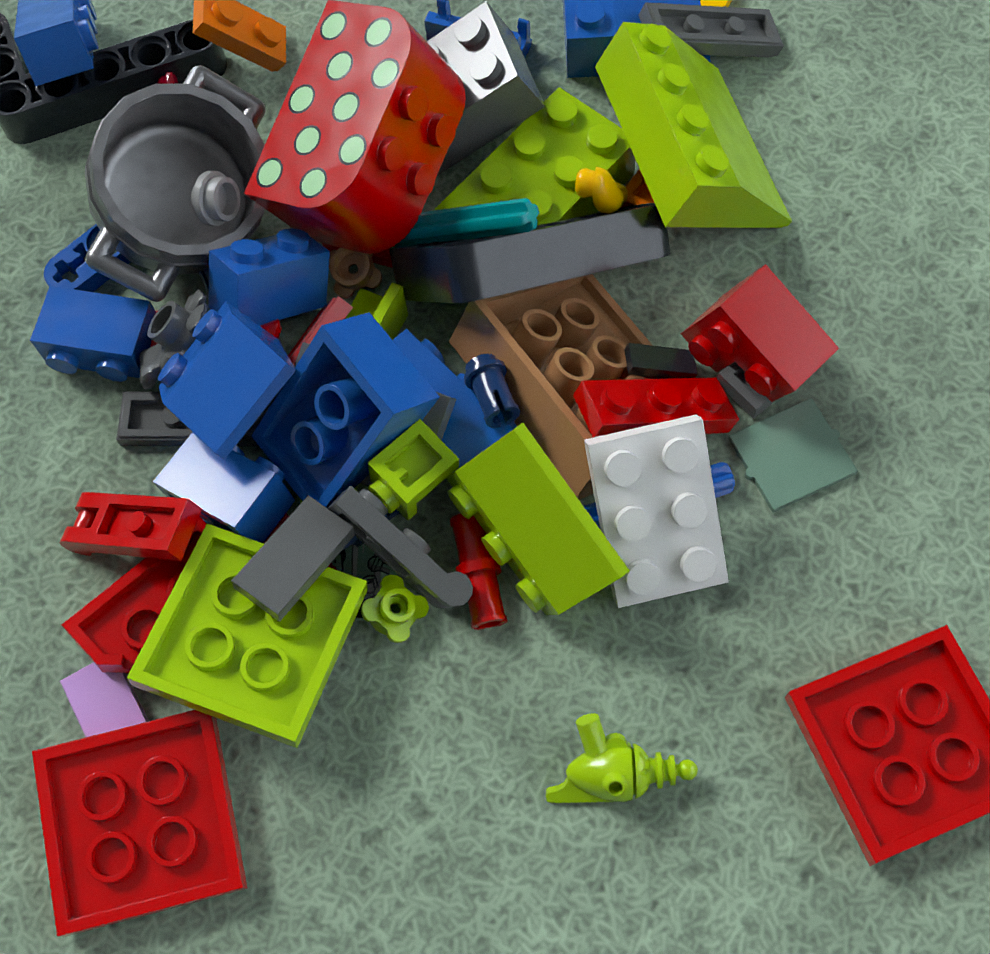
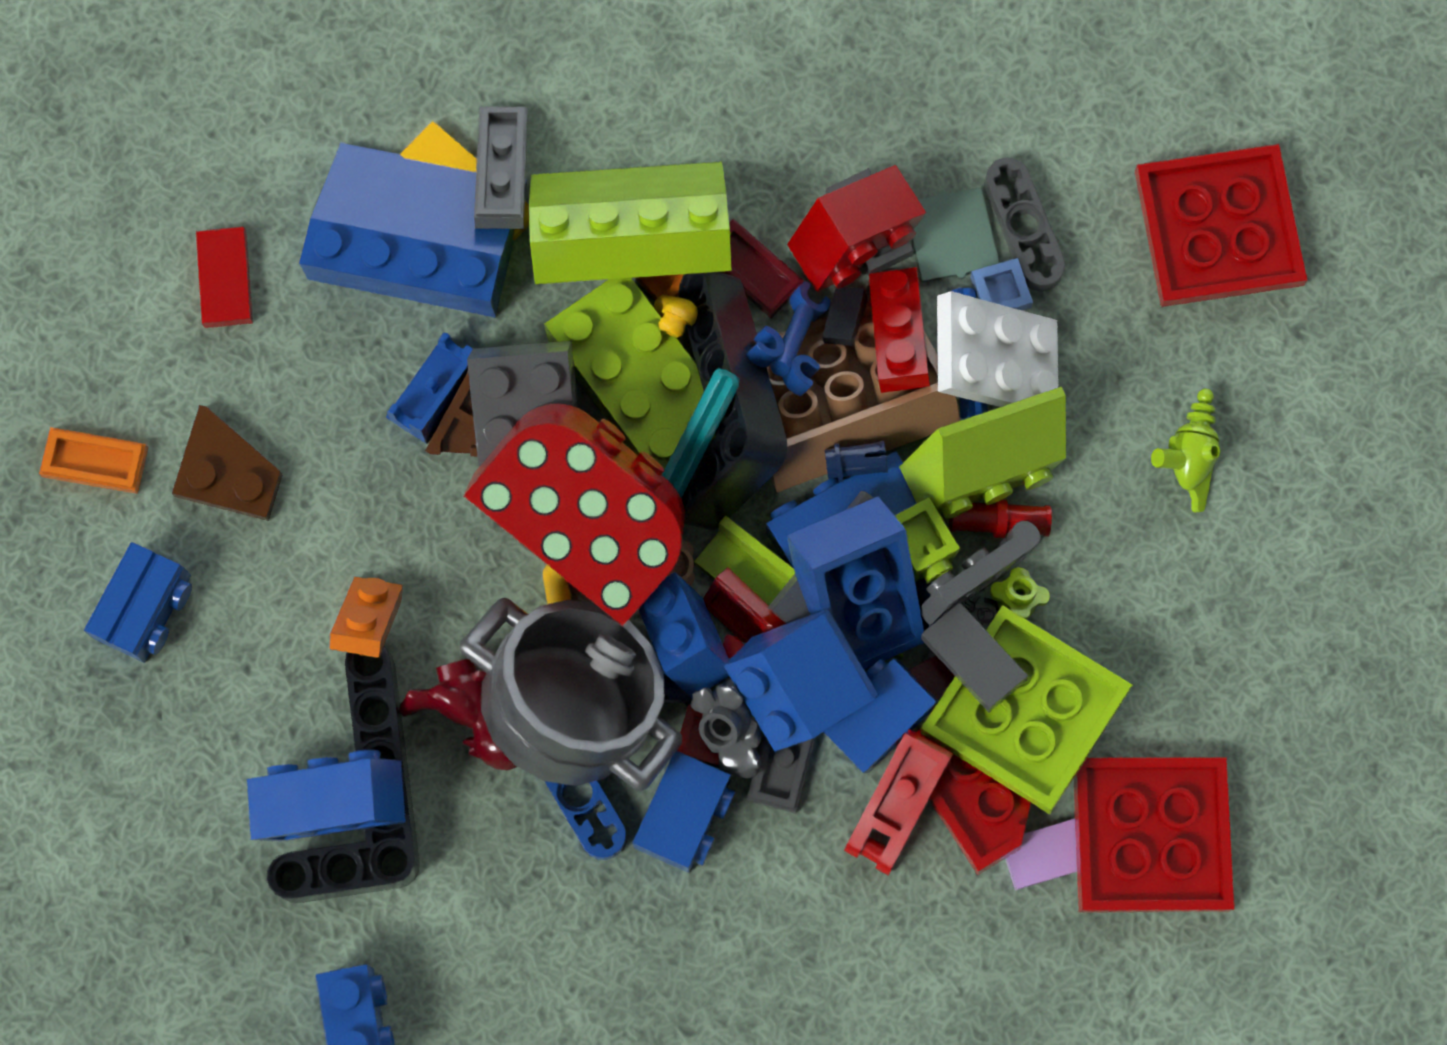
camera: 80 degrees left, 10 degrees up
(584, 298) = (783, 352): none -> blue bar
(687, 274) = (763, 275): none -> dark red tile
(746, 513) = (1002, 285): none -> medium blue plate
(852, 489) = (1023, 188): none -> dark grey beam

